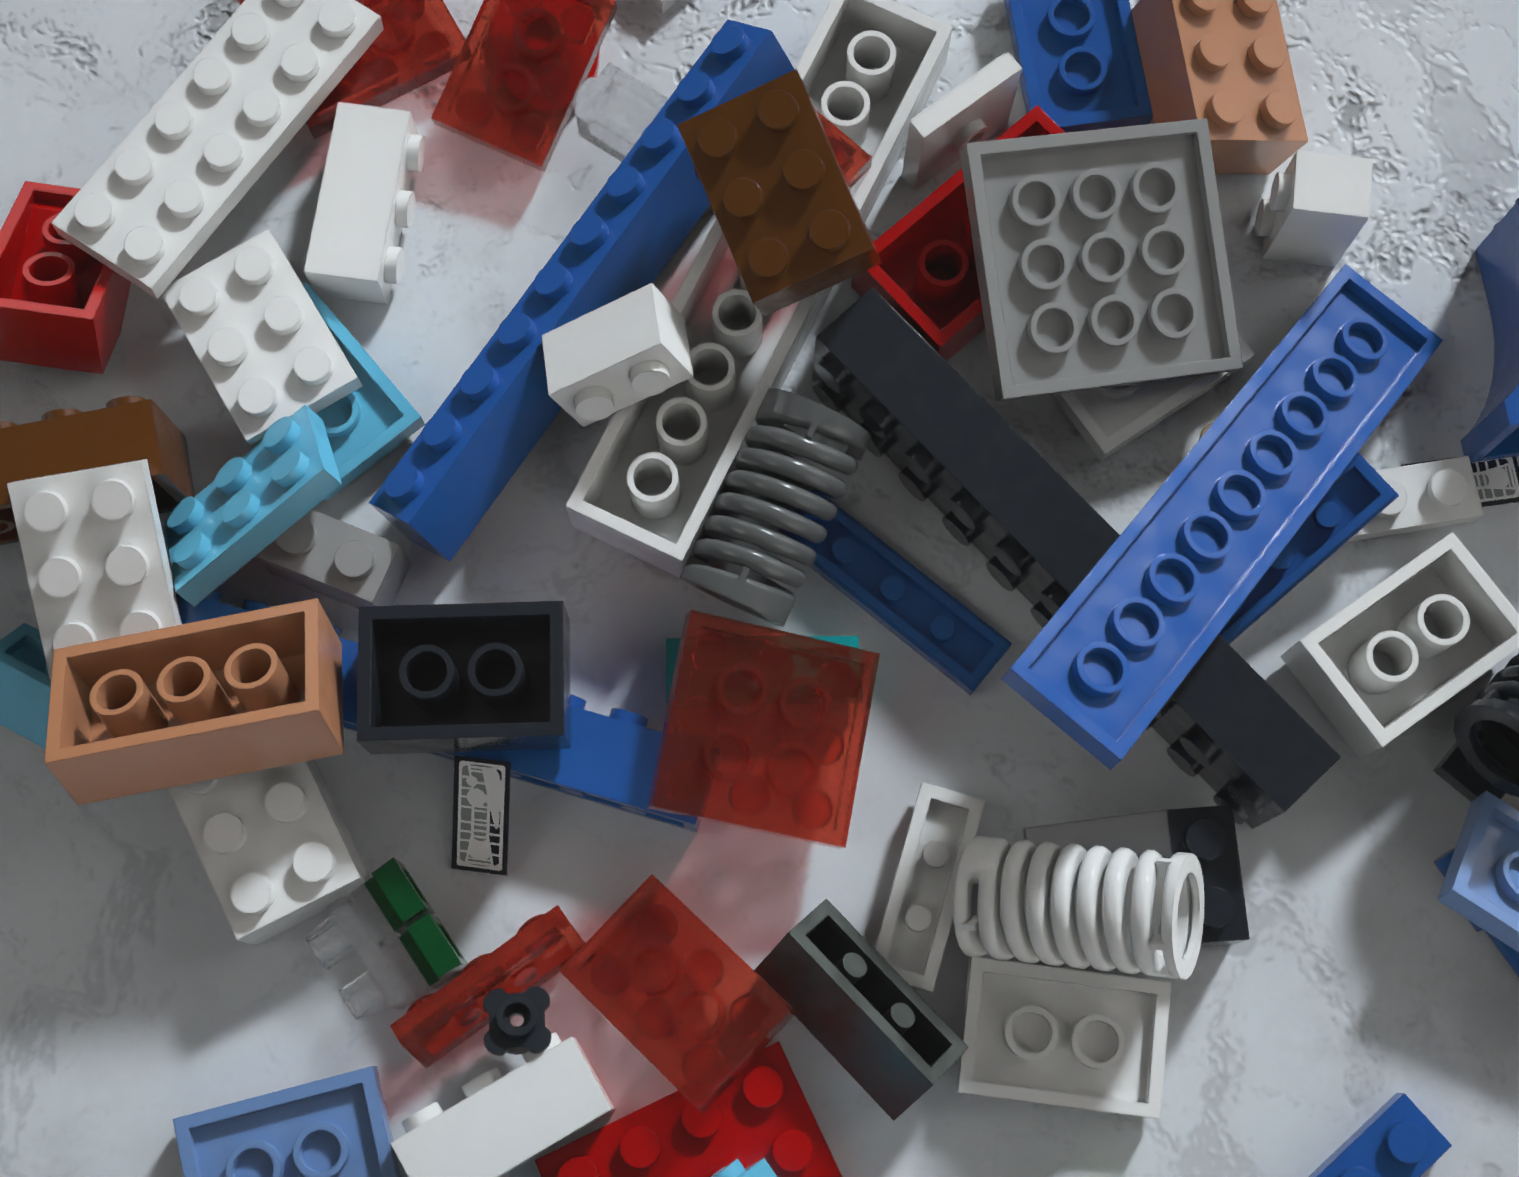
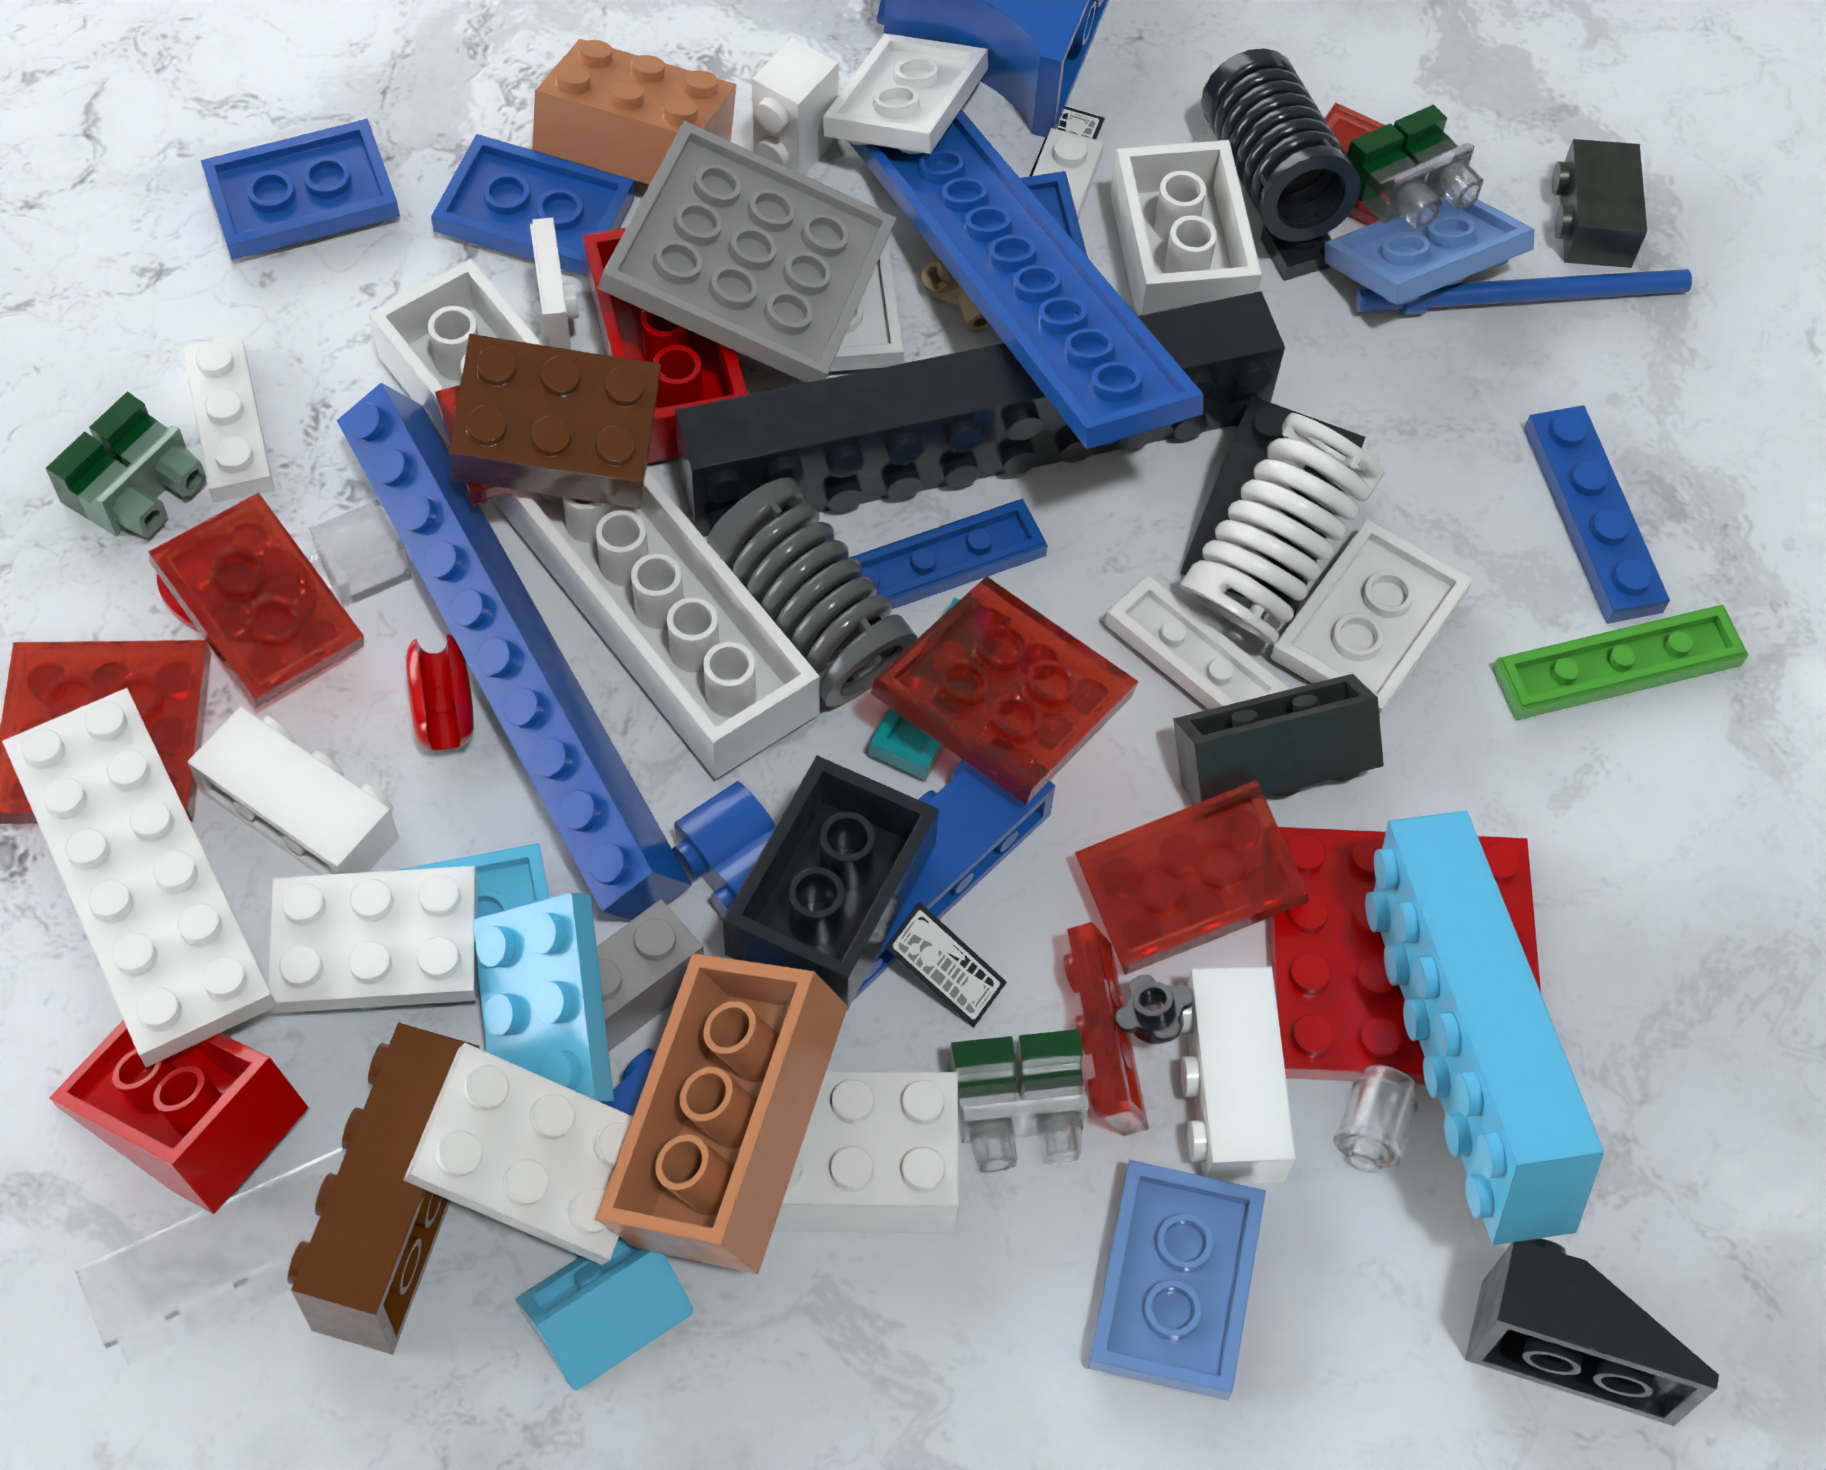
camera: 65 degrees left, 15 degrees down
(503, 566) = (723, 841): none -> blue brick
(512, 259) = (439, 696): none -> red piece
(617, 355) = (607, 627): white brick -> none
(1405, 299) = (906, 93): none -> white plate

